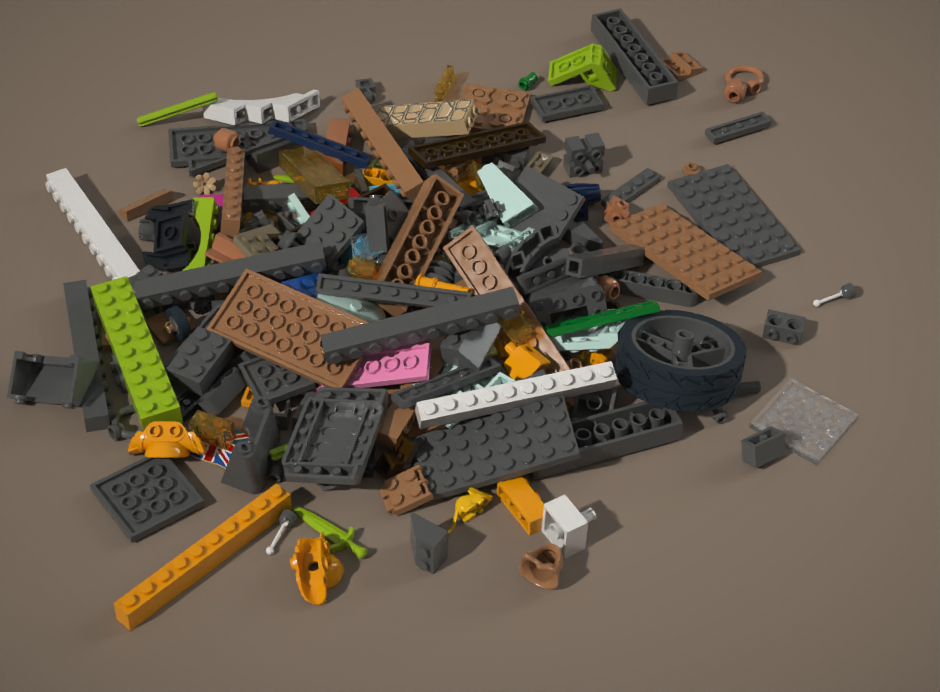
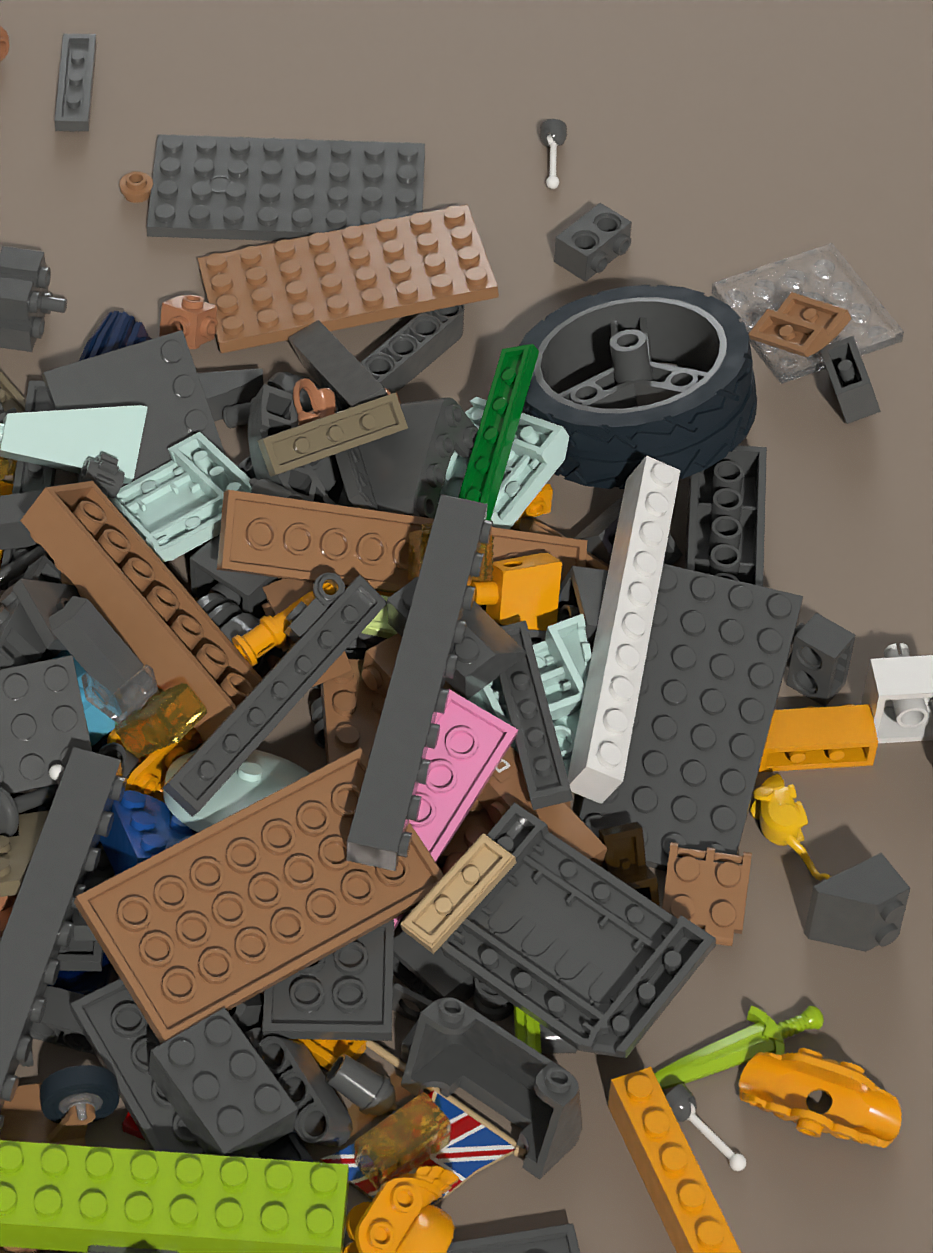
camera: 65 degrees left, 5 degrees up
(236, 410) = (362, 1086): none -> dark grey piece
(332, 391) = (458, 893): none -> tan tile
(441, 283) = (304, 616): none -> dark grey plate
(544, 255) = (332, 434): none -> dark tan plate
(558, 253) = (321, 399): none -> nougat piece
(567, 481) = (819, 659): none -> dark grey brick
(634, 187) = (128, 279): dark grey plate -> none
(780, 416) = (800, 325): none -> medium nougat slope

